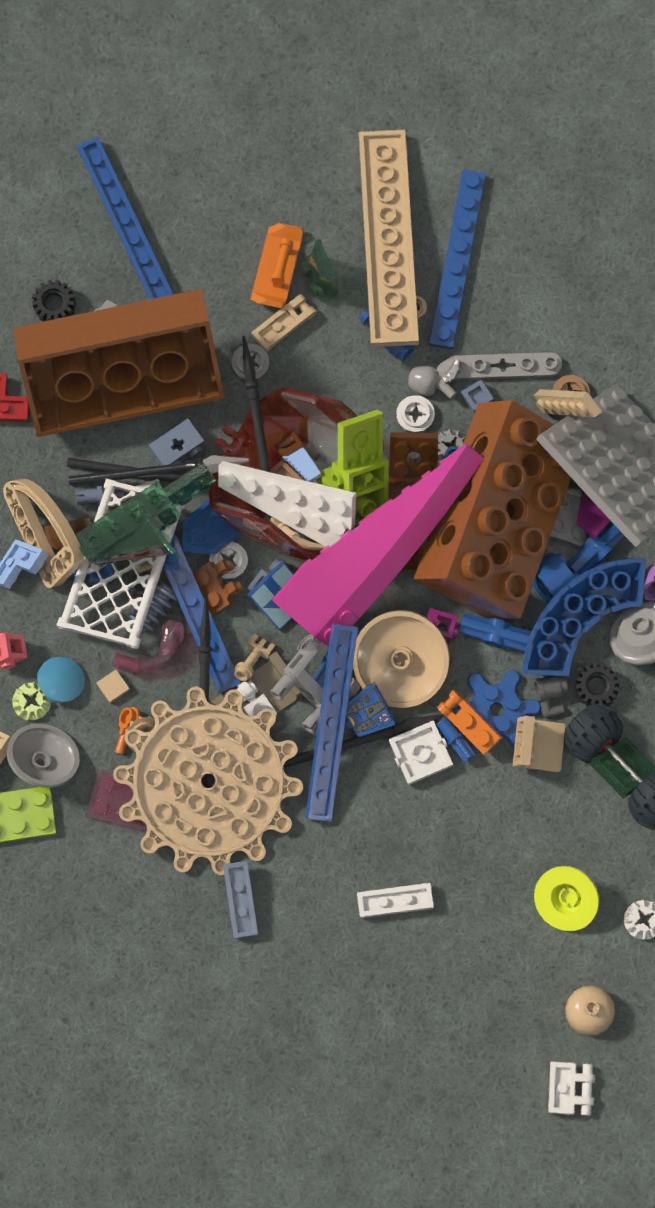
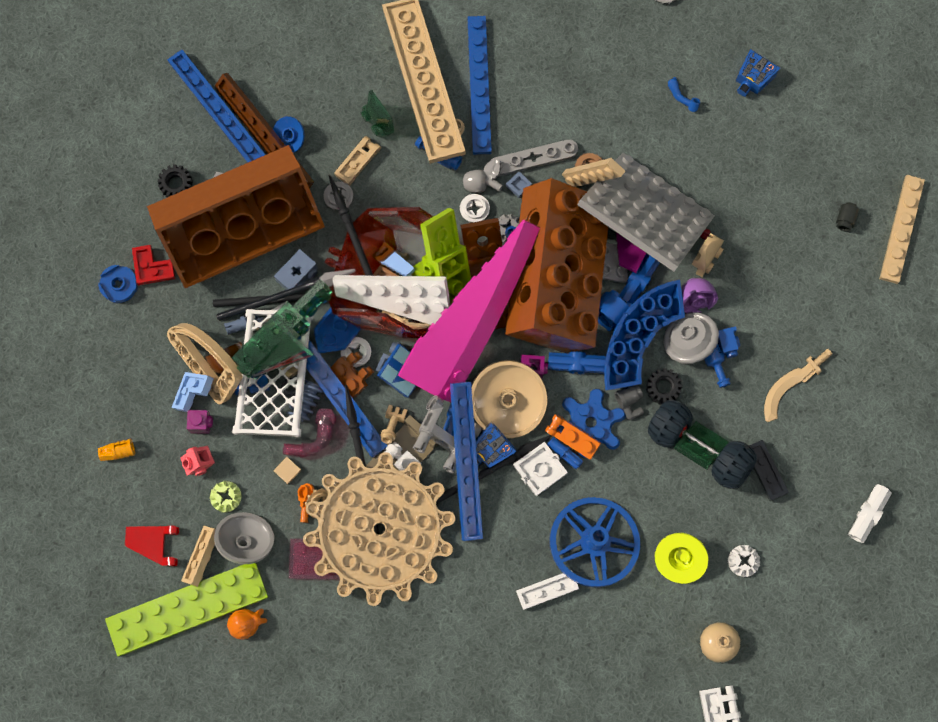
camera: 15 degrees left, 0 degrees up
(19, 603) = (199, 421): none -> magenta brick
(21, 858) = (245, 623): none -> orange piece
(61, 679) = (245, 474): dark azure dish -> none
(168, 246) = (252, 118): none -> reddish brown plate
(198, 272) = (284, 128): none -> blue dish
(240, 899) = (426, 617): sand blue plate -> none
(277, 265) = (342, 118): orange piece -> none
(466, 855) = (595, 542): none -> blue wheel
(538, 744) = (630, 442): tan bracket -> none

